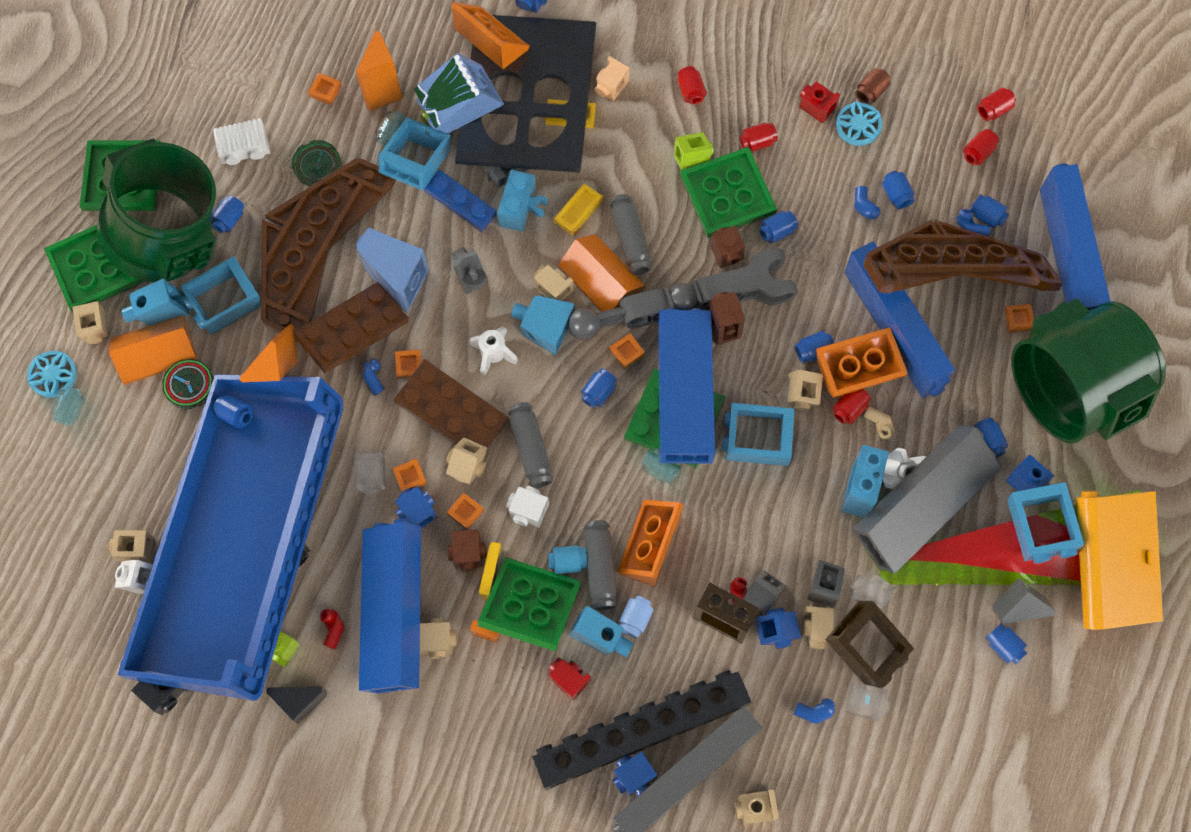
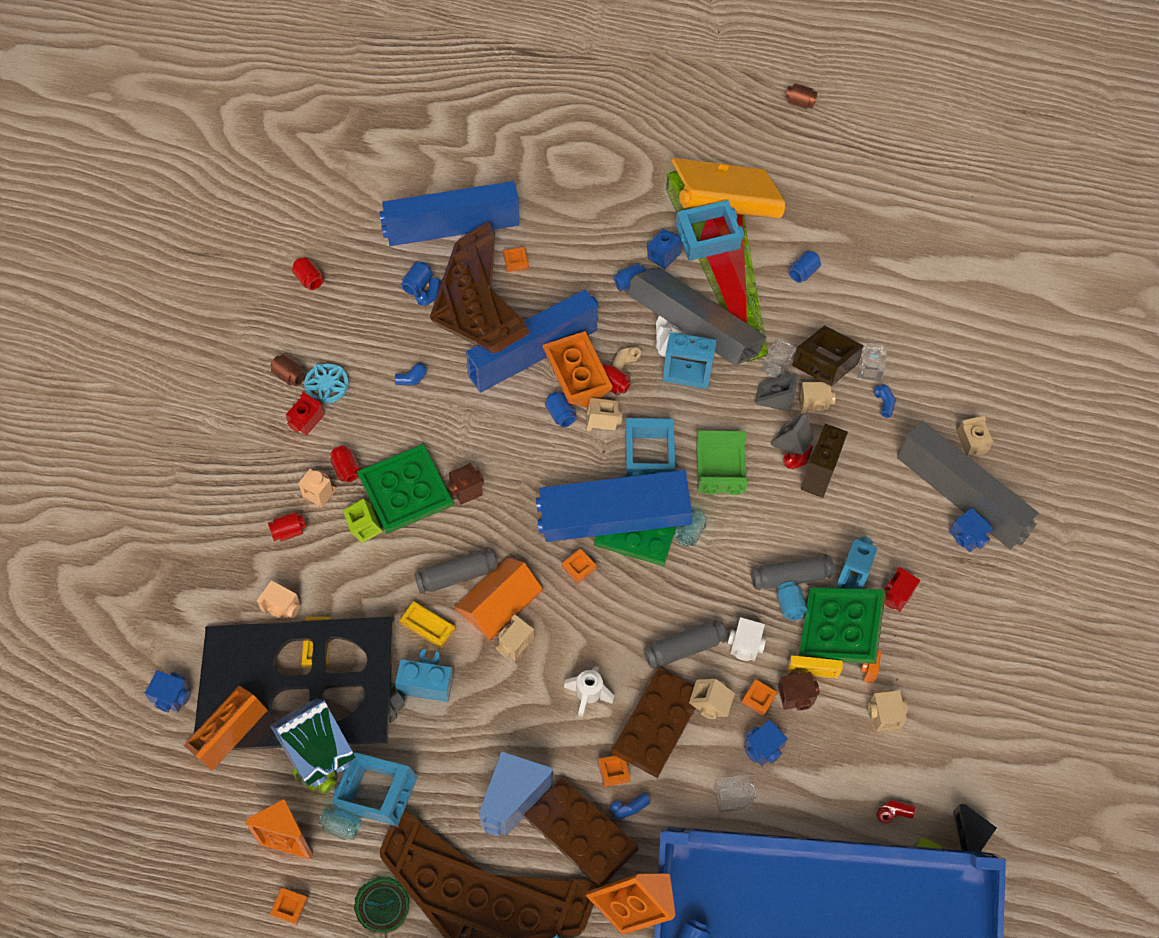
camera: 100 degrees left, 10 degrees down
(390, 607) = (870, 750): blue brick -> none
(409, 475) = (732, 754): orange plate -> none
(460, 200) = (425, 738): blue plate -> none
(468, 269) = (510, 715): dark grey hips -> none
(544, 321) = (556, 641): dark azure torso -> none
(598, 388) = (620, 587): blue brick -> none
(636, 616) = (834, 539): light blue brick -> none
(643, 308) = (522, 517): dark grey piece -> none
(650, 541) = (763, 529): orange slope -> none
(726, 317) = (541, 472): copper brick -> none
(727, 682) = (960, 554): black brick -> none
(732, 111) = (316, 483): none -> light nougat brick
(739, 510) = (721, 462): none -> bright green panel
(778, 226) = (440, 443): blue brick -> none
(778, 628) = (818, 419): blue brick -> none
(898, 189) = (398, 347): blue brick -> none
(981, 147) = (352, 285): red brick -> none
(1022, 604) = (772, 256): dark grey slope -> none
(1088, 370) = (575, 197): dark green cylinder -> none

